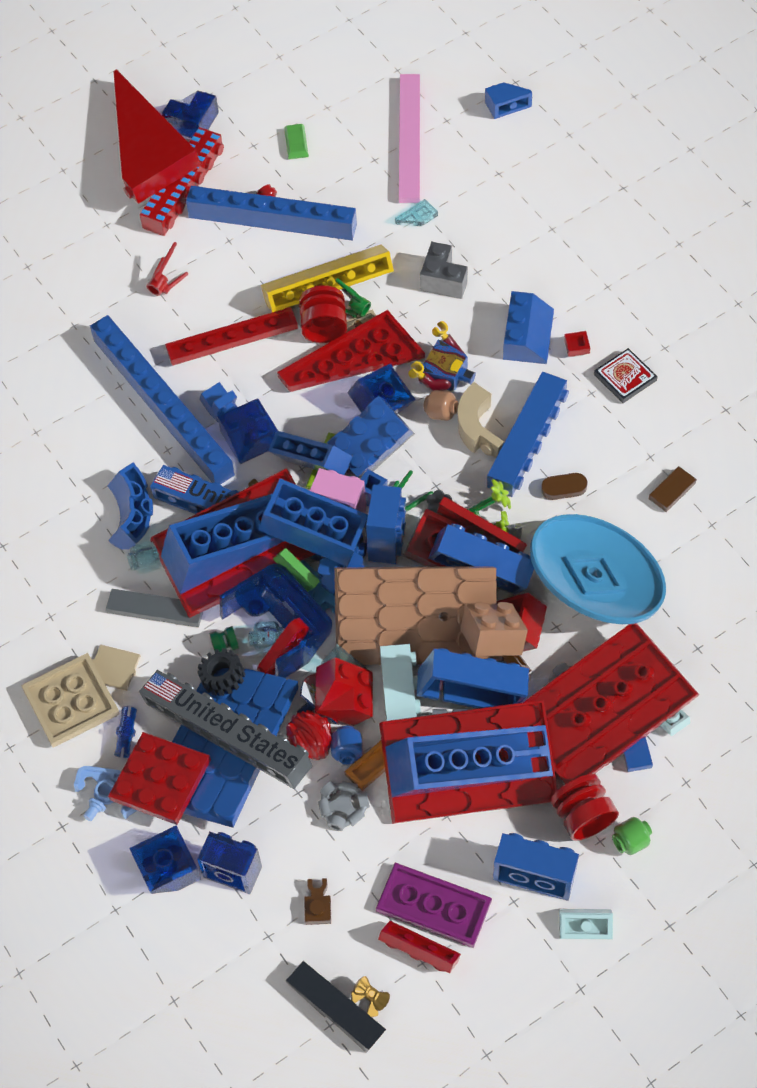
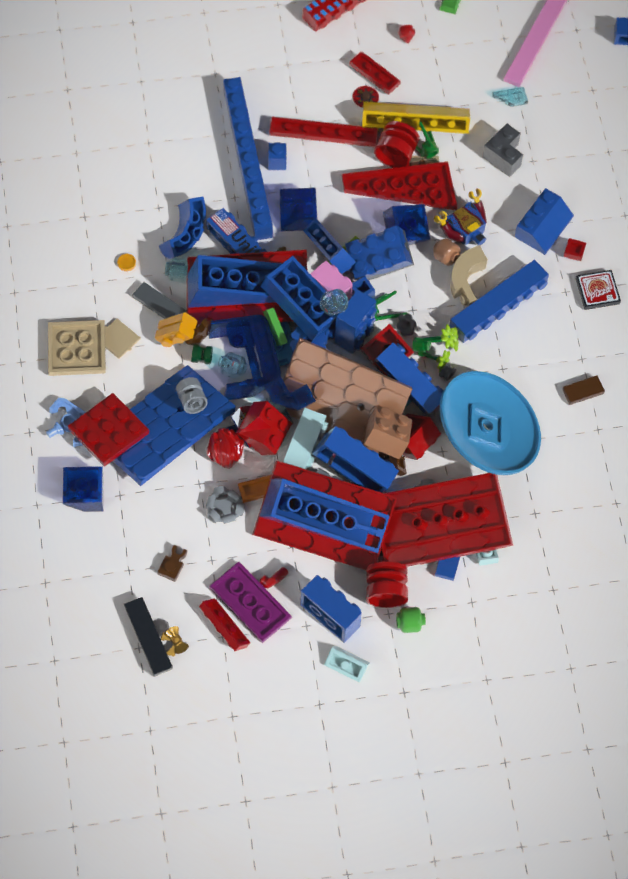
camera: 20 degrees right, 5 degrees up
(79, 576) = (126, 262): none -> light orange piece
(125, 732) = (103, 387): clear blue pin -> none
(158, 282) = (291, 67): red plant -> none
(180, 625) = (175, 329): none -> light orange brick
(193, 382) = (277, 156): none -> blue brick
(207, 619) = (200, 333): none -> reddish brown plate
(217, 400) = (287, 176): blue brick -> none
(226, 681) = (187, 367): black tyre -> none
(227, 729) = (168, 416): dark grey brick -> none
(230, 862) = (126, 508): clear blue slope -> none
(240, 692) = (191, 395): none -> light grey wheel
(255, 250) = (375, 72): none -> red plate
(255, 278) = (365, 94): none -> piece
(271, 212) = (402, 48): blue brick -> none
(289, 638) = (245, 373): red beam -> none
(346, 644) = (281, 396): none -> clear blue brick
(346, 745) = (248, 466): blue head -> none
(356, 509) = (334, 302): none -> clear light blue head
(449, 863) = (274, 579): none -> red arm
(476, 524) = (421, 355): red tile -> none
(564, 486) = (505, 352): reddish brown tile -> none

